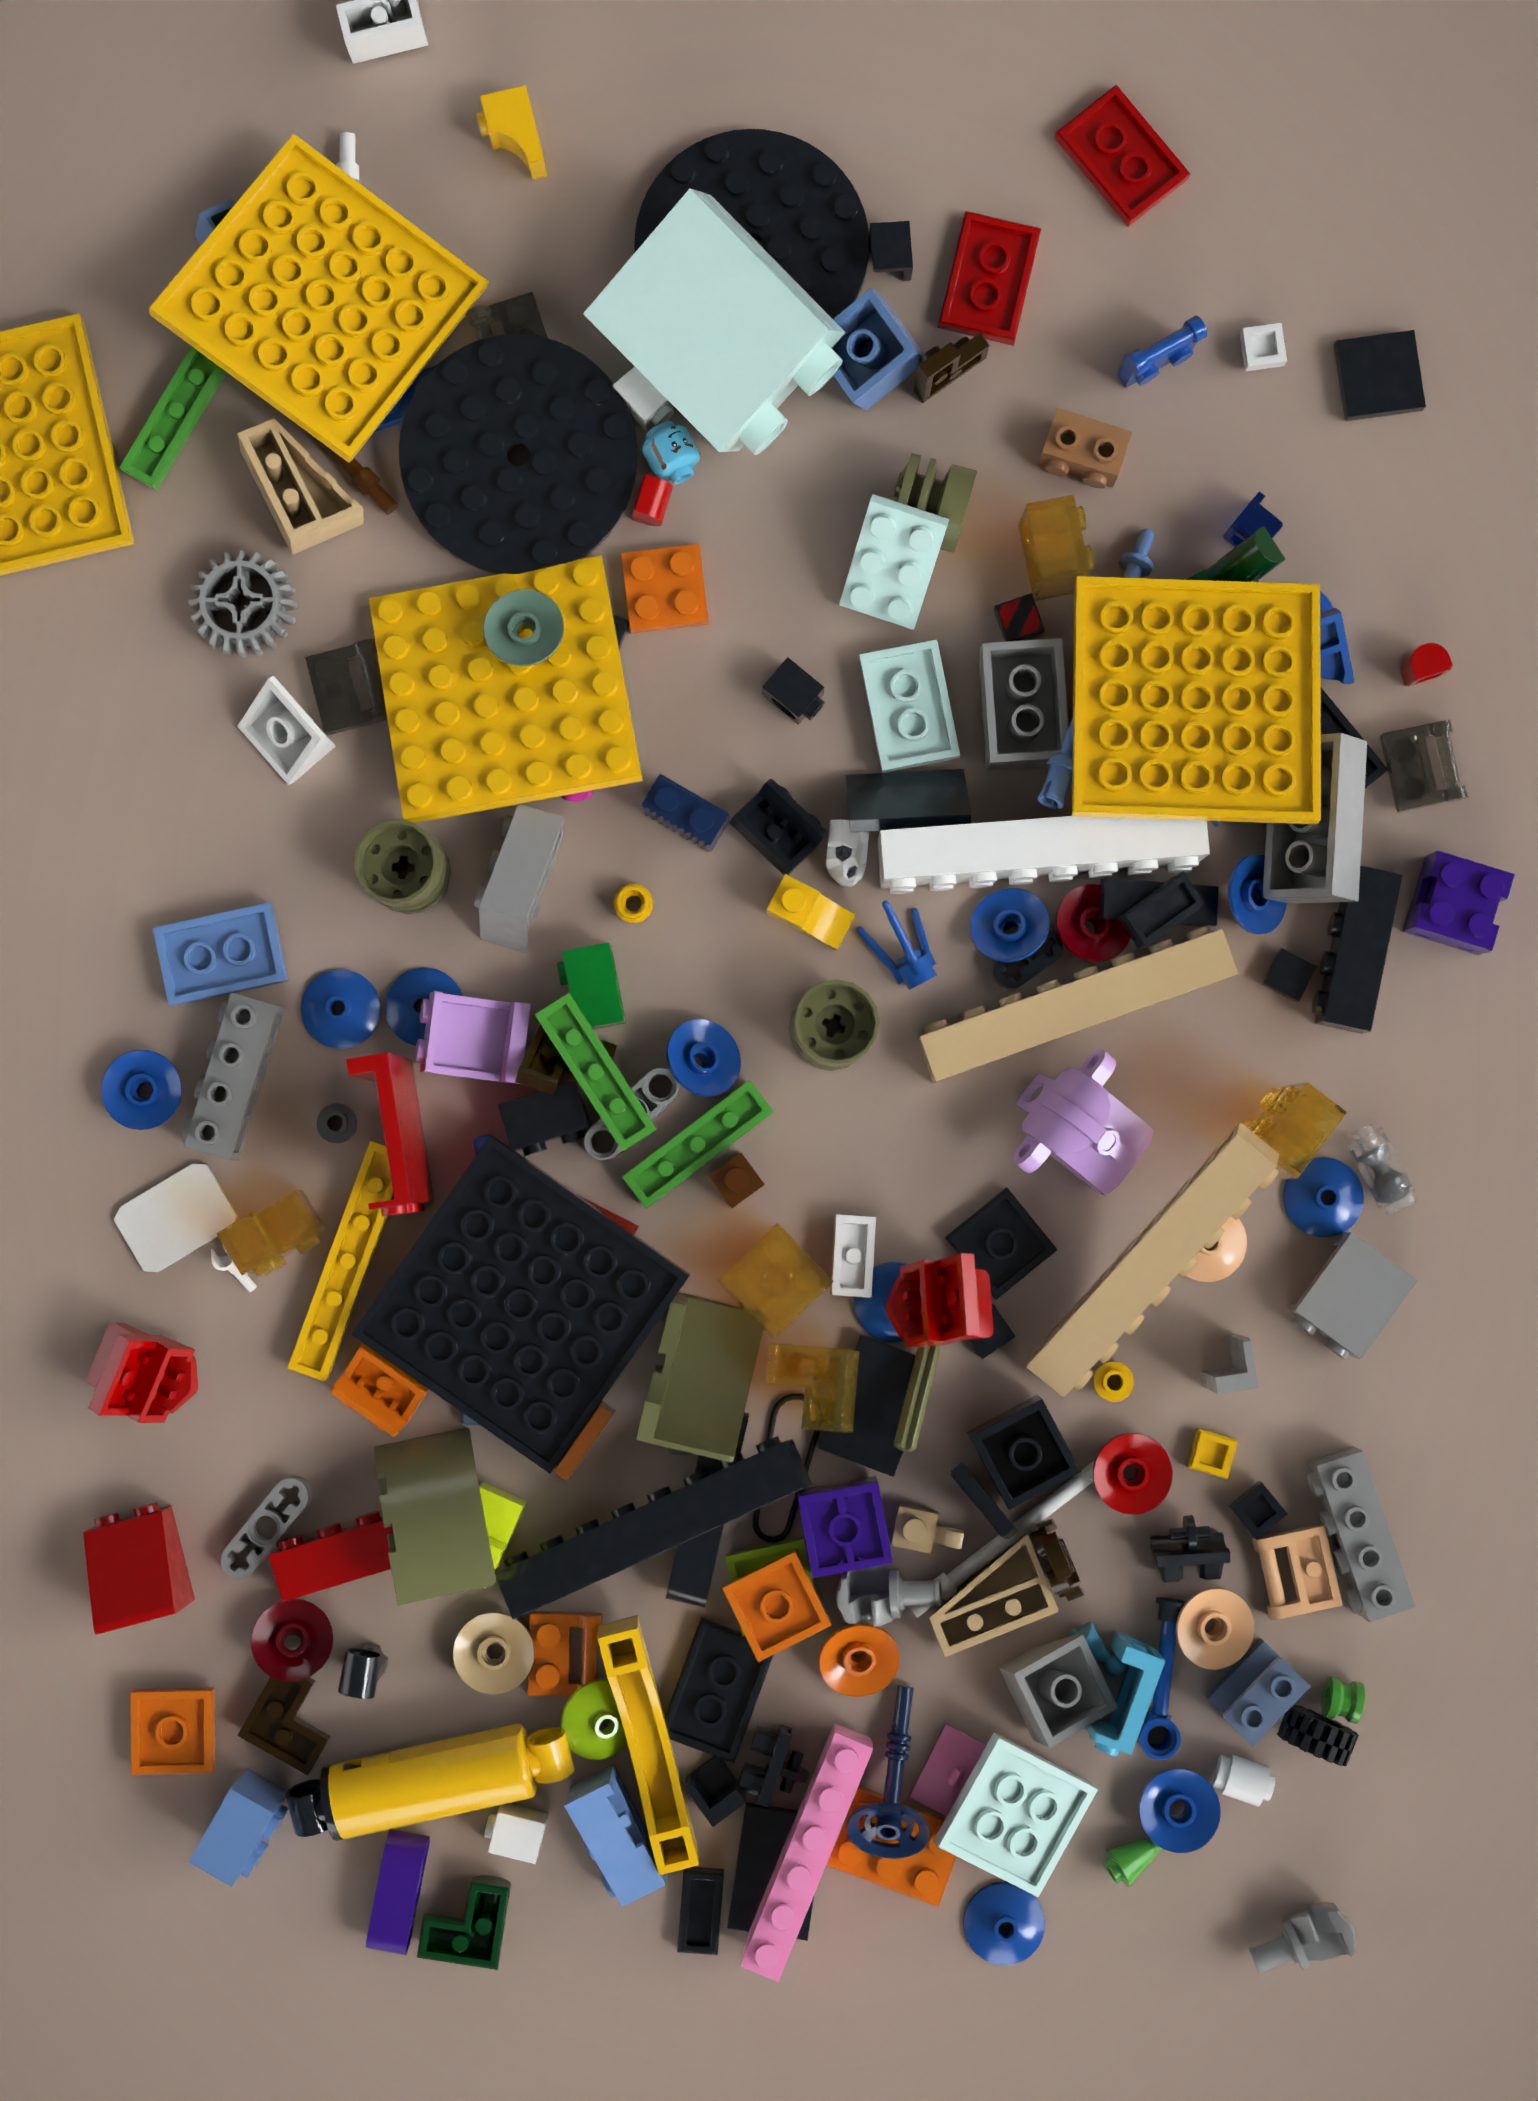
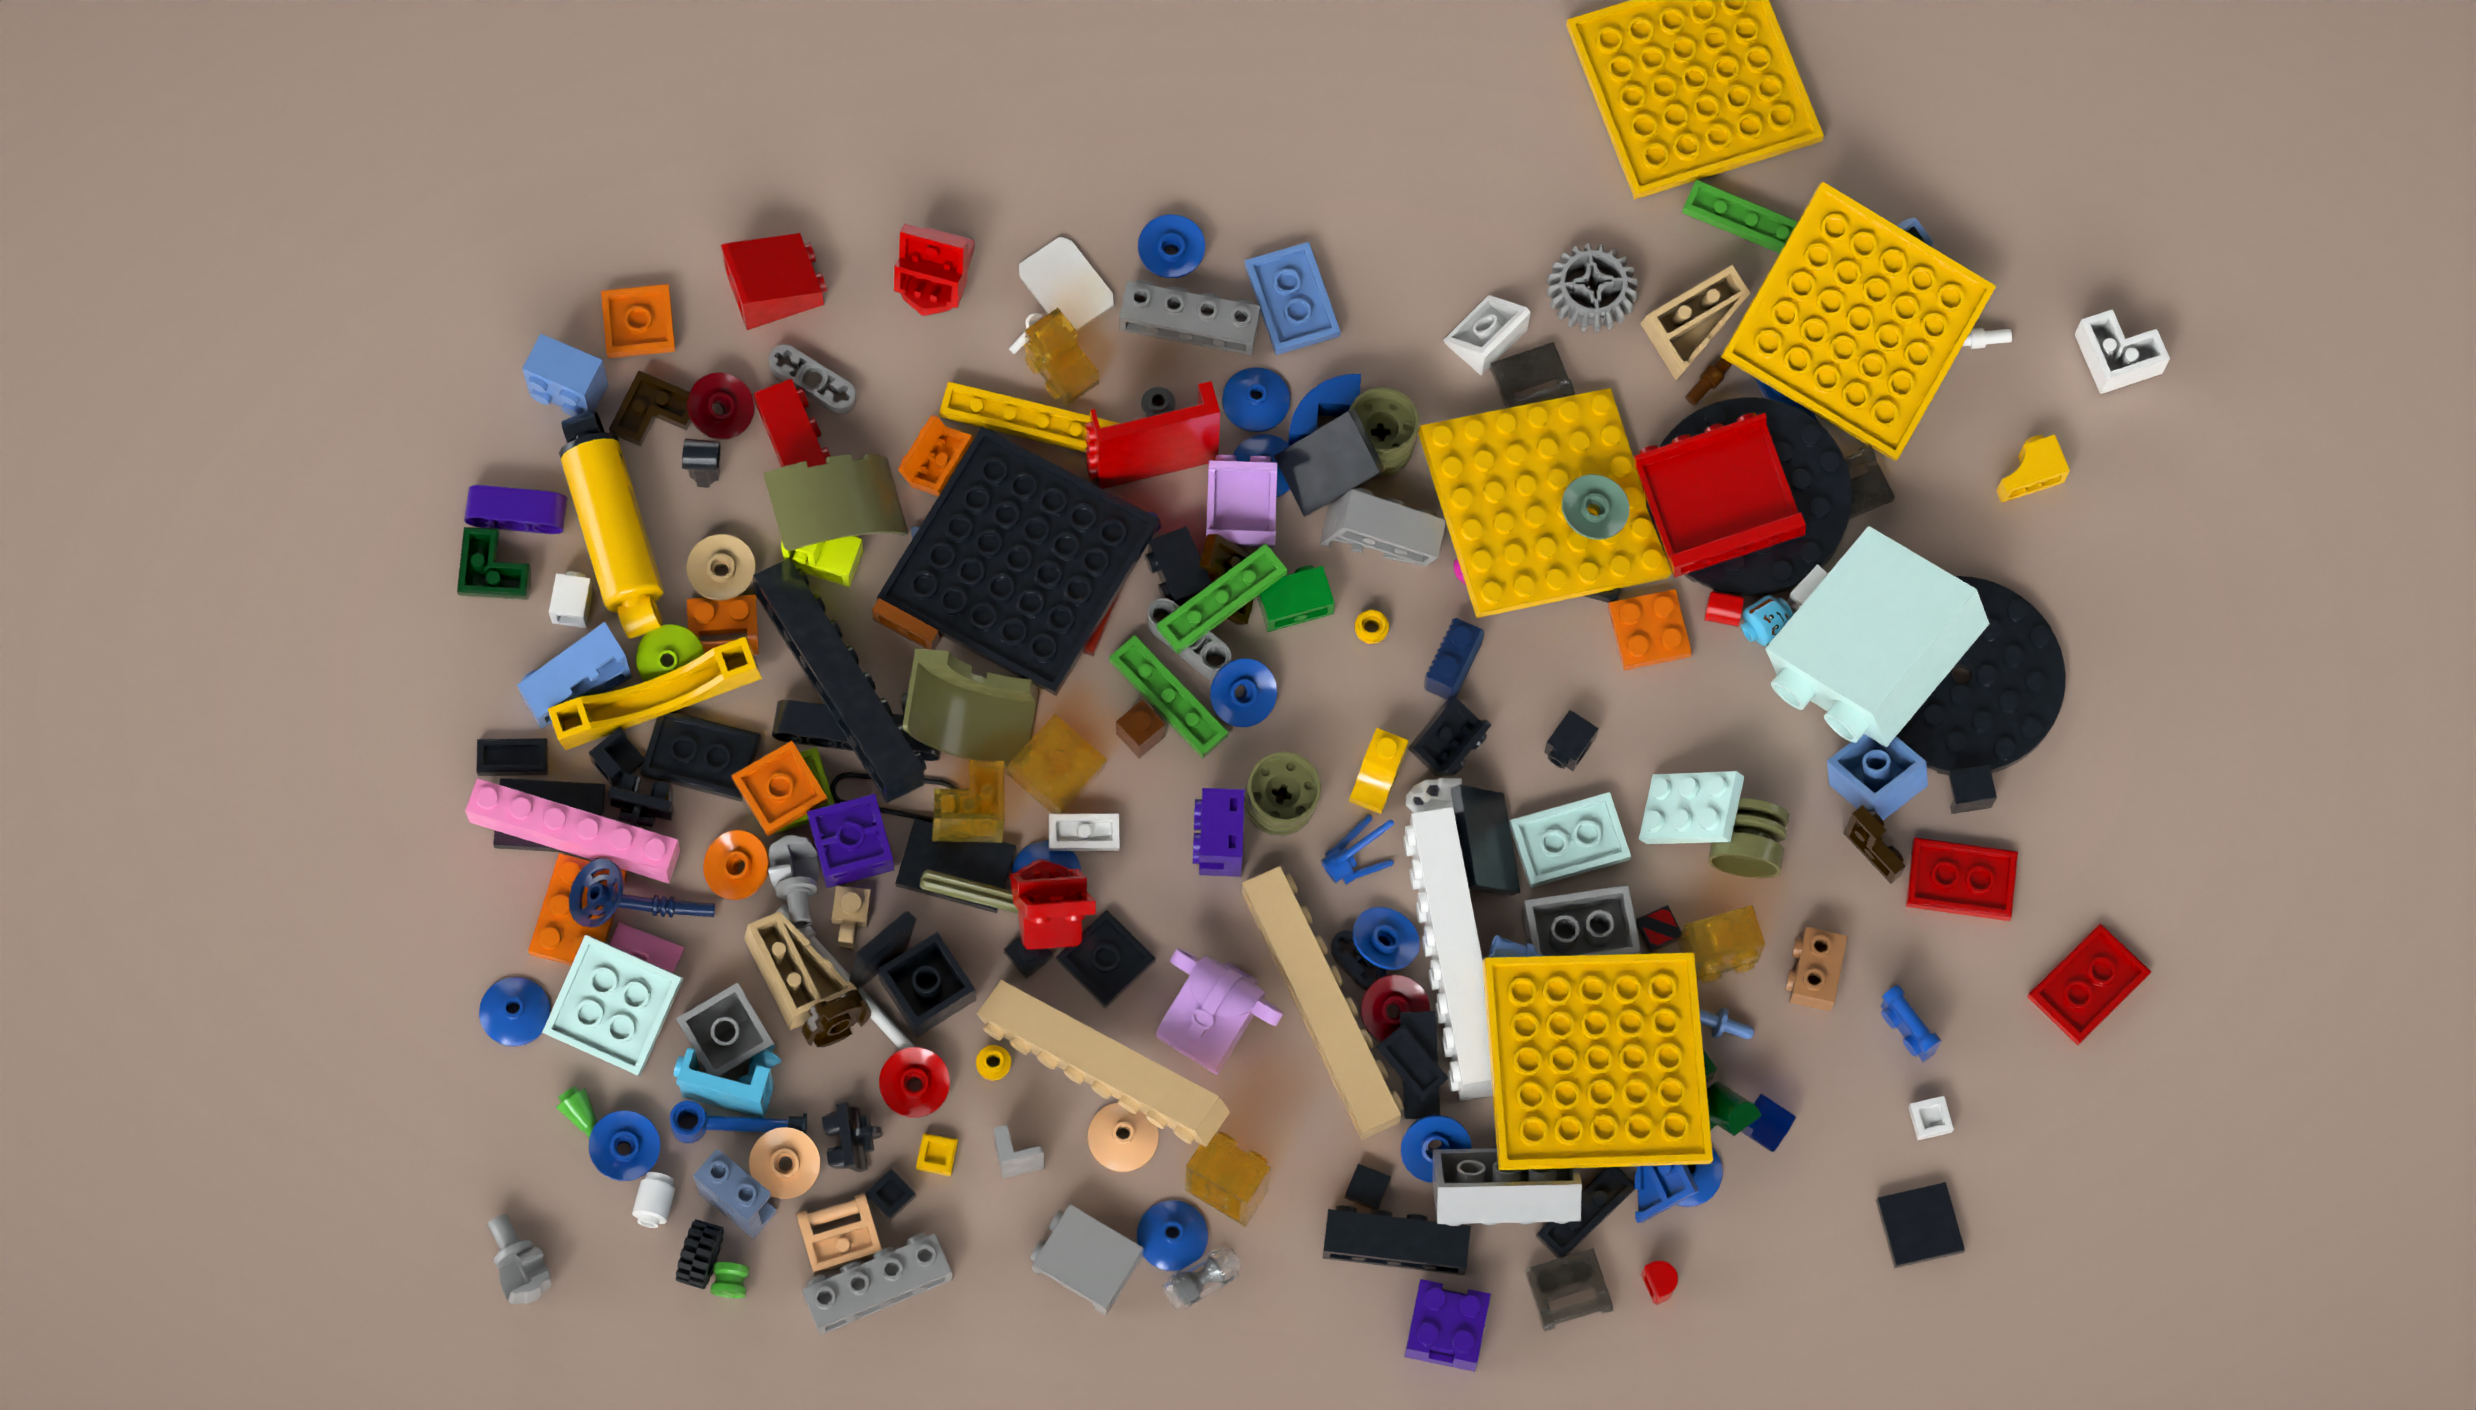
camera: 80 degrees right, 15 degrees down
(350, 917) = (1326, 399): none -> blue brick
(438, 929) = (1329, 463): none -> black tile
(519, 485) = (1718, 494): none -> red panel
(875, 1100) = (1220, 842): none -> dark purple piece

